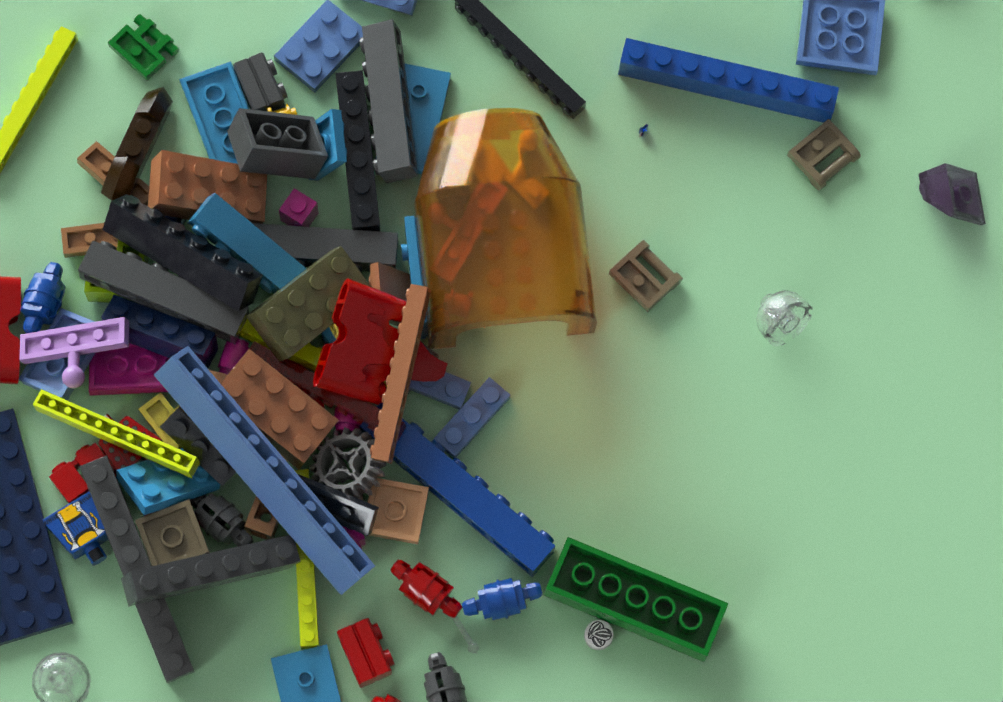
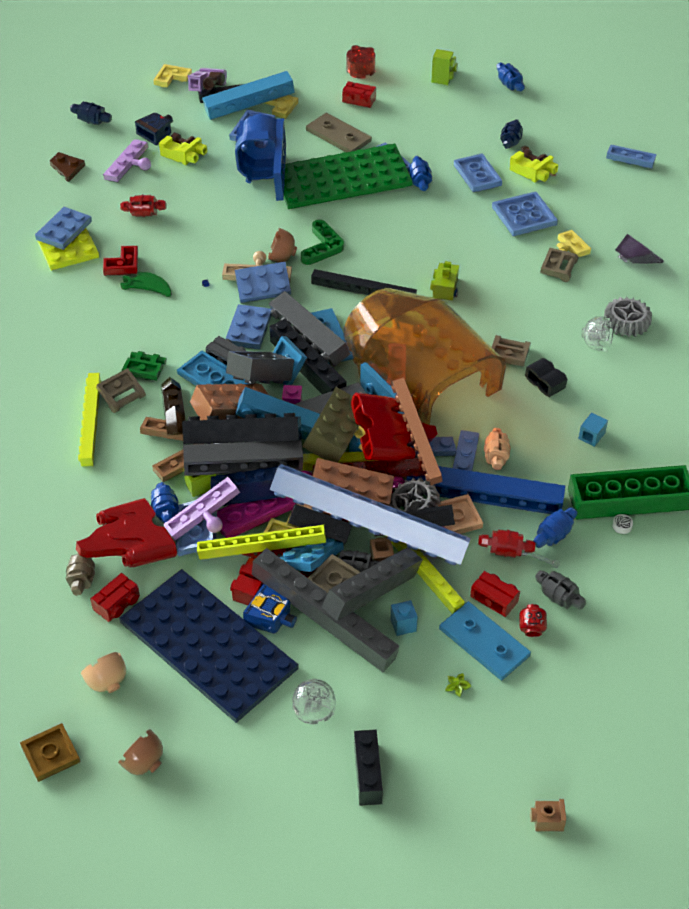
camera: 25 degrees left, 25 degrees down
(87, 69) = (116, 386): none -> dark tan plate
(231, 627) = (403, 618): none -> dark azure brick
(506, 431) = (497, 448): none -> light nougat piece
(637, 104) = (445, 281): none -> lime brick
(661, 350) = (546, 377): none -> black brick
(663, 470) = (593, 429): none -> dark azure brick
(728, 80) = (486, 251): blue brick -> none
(836, 286) = (628, 316): none -> light grey gear
(870, 127) = (572, 242): none -> light yellow plate

